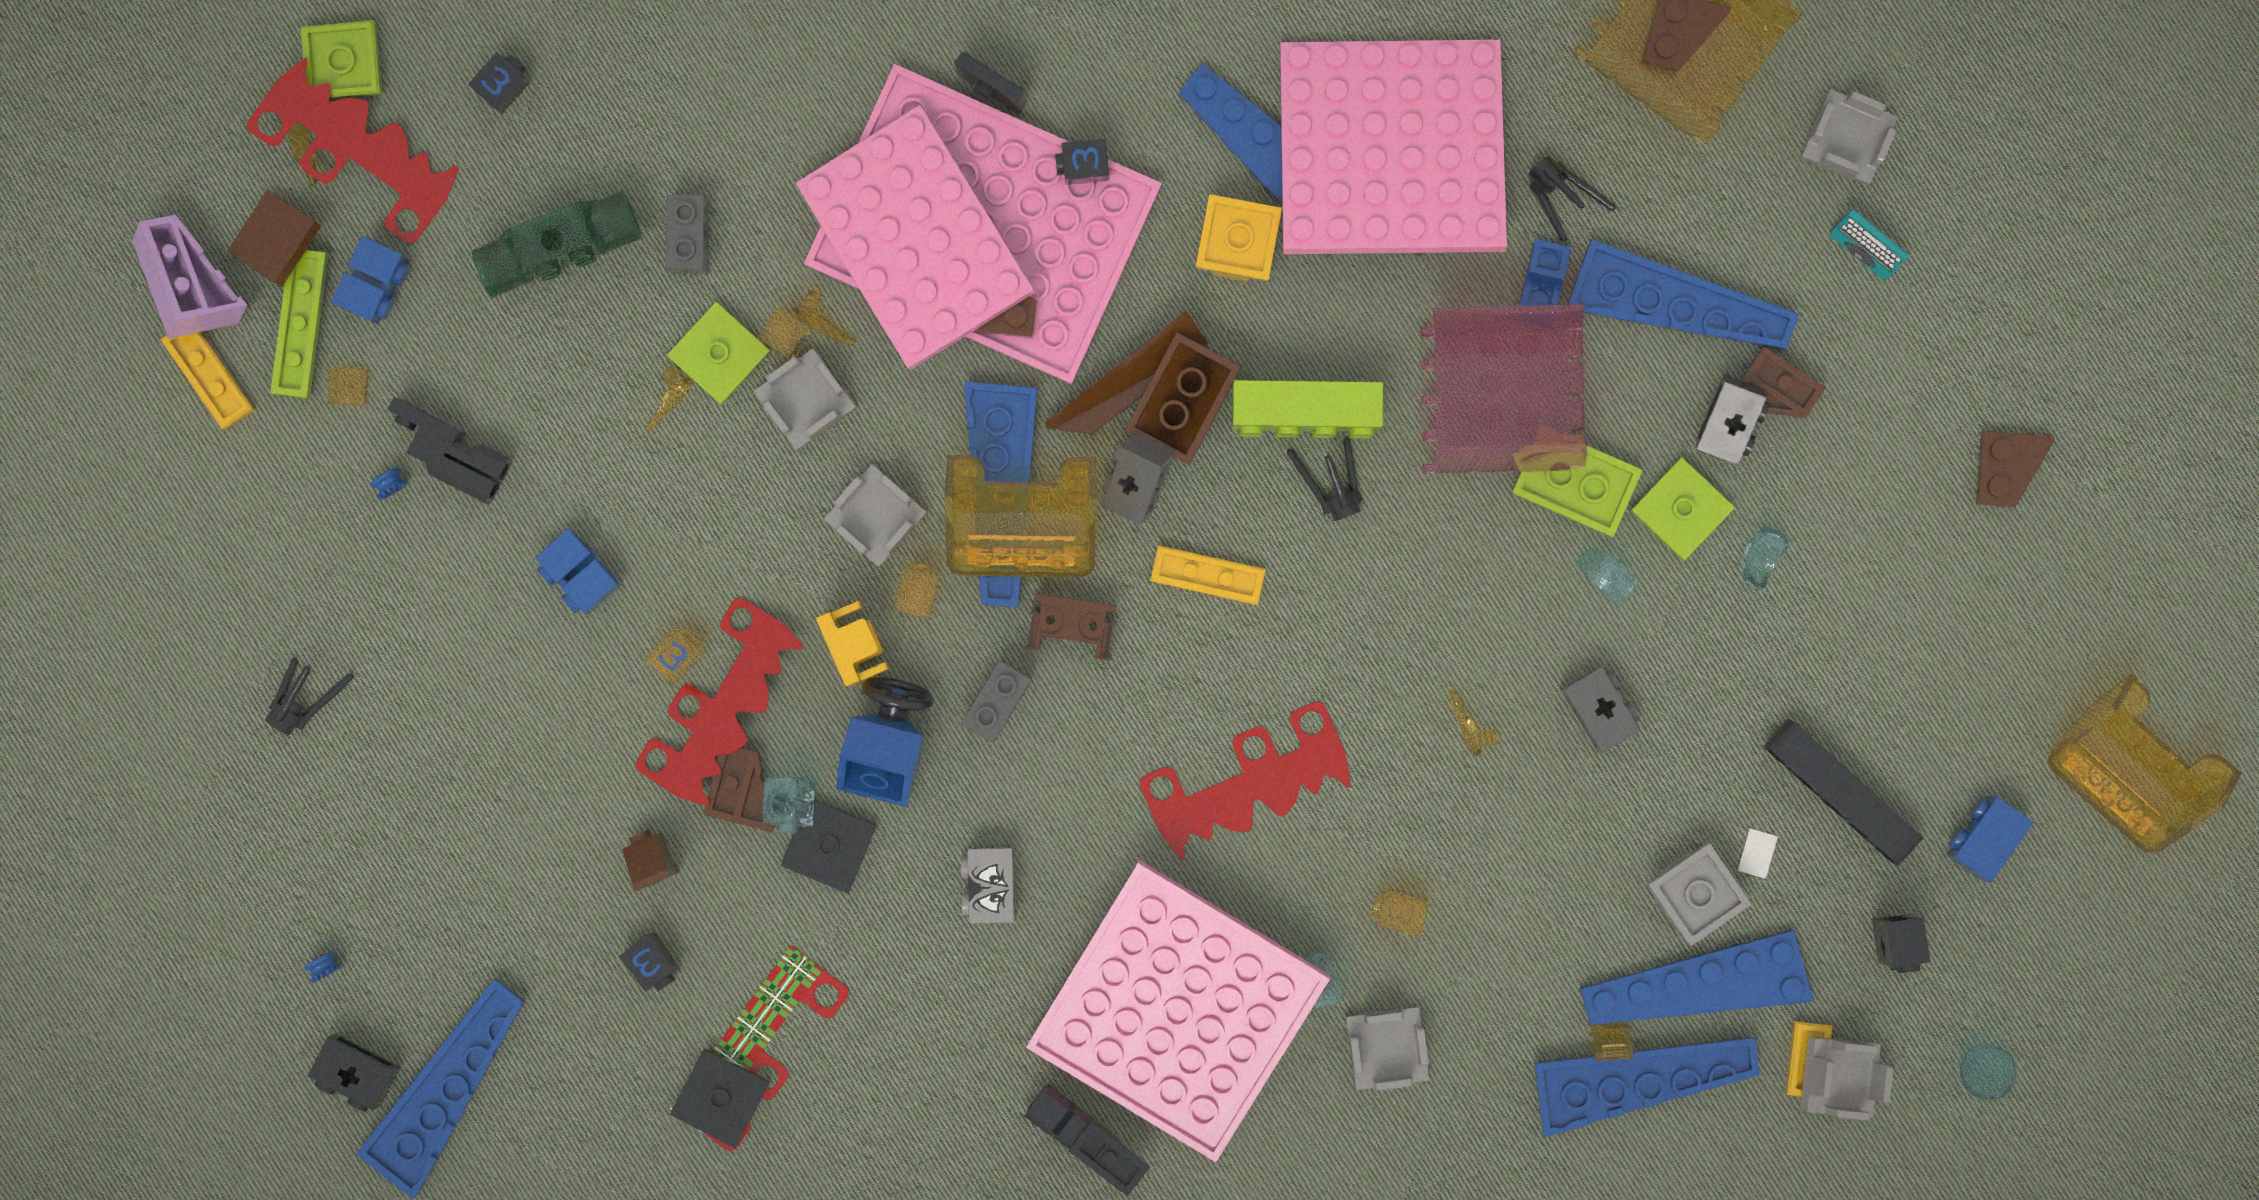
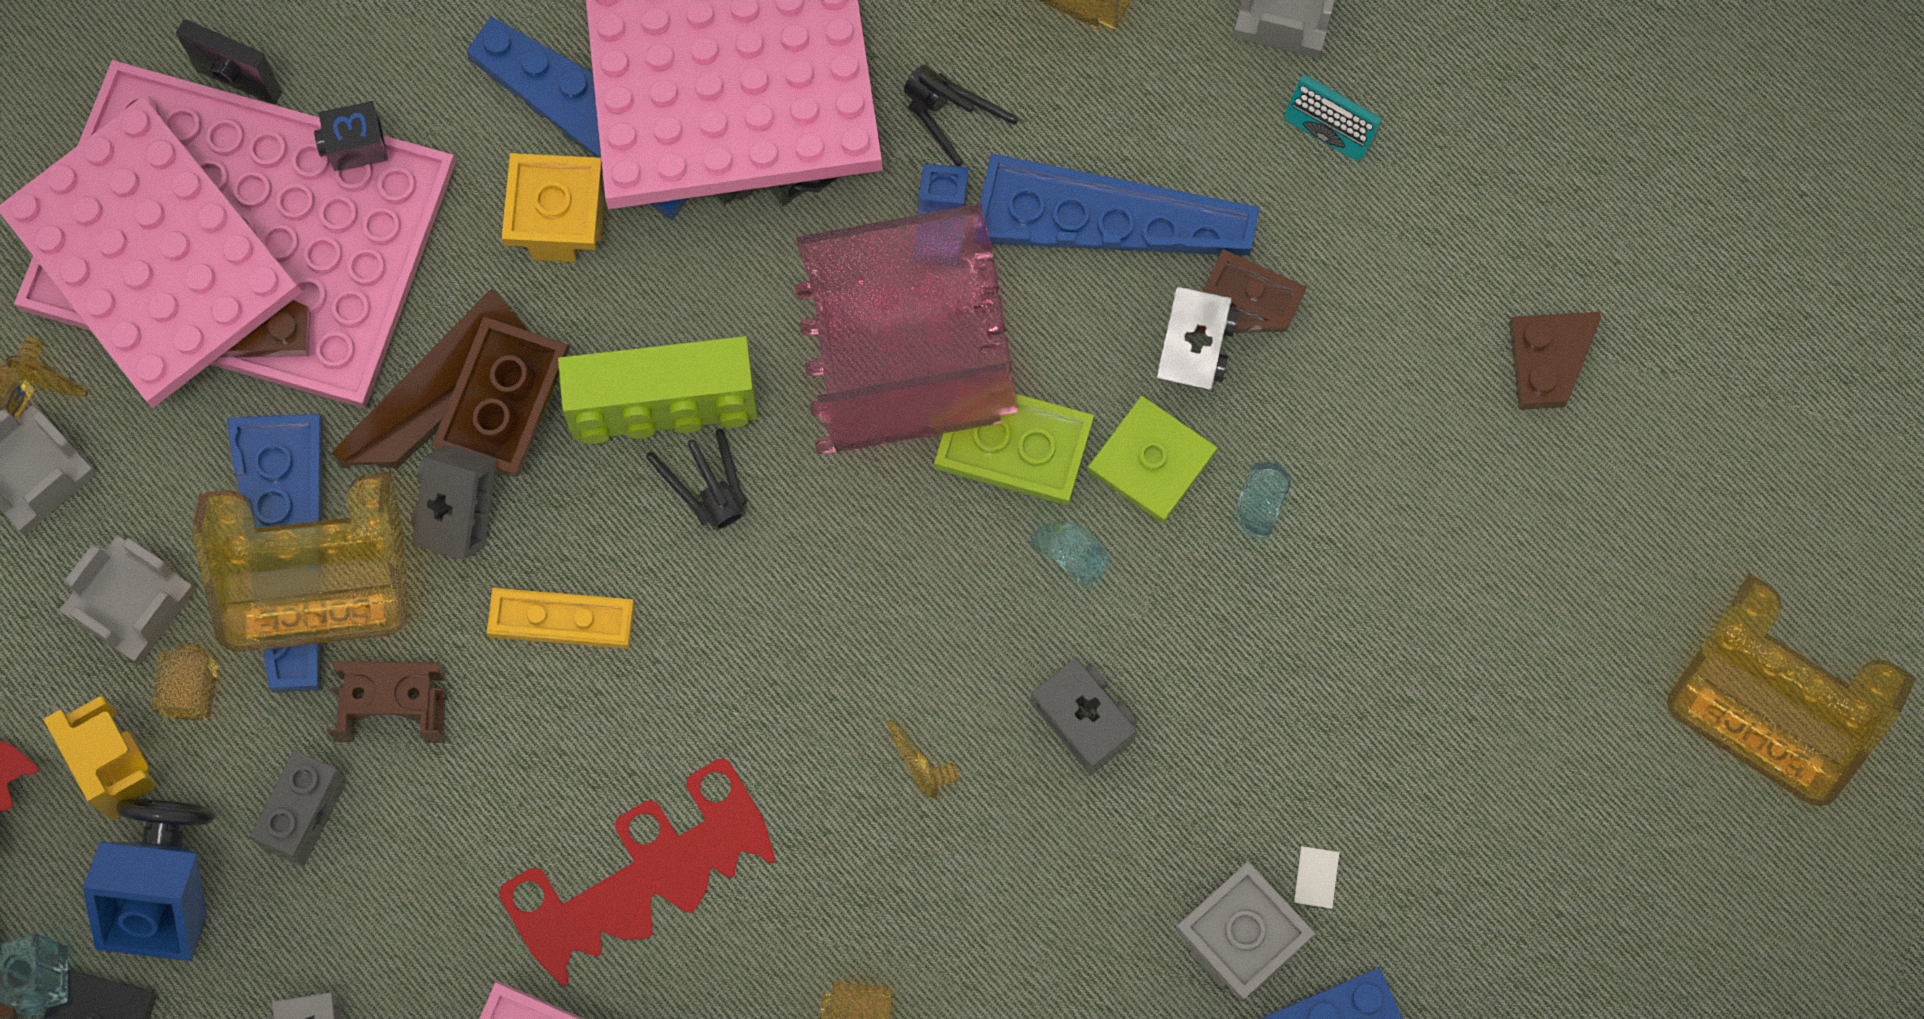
camera: 10 degrees left, 15 degrees down
(1843, 792) = (1413, 780): black beam -> none
(1901, 942) = (1519, 957): black brick -> none
(1989, 838) = (1611, 813): blue piece -> none

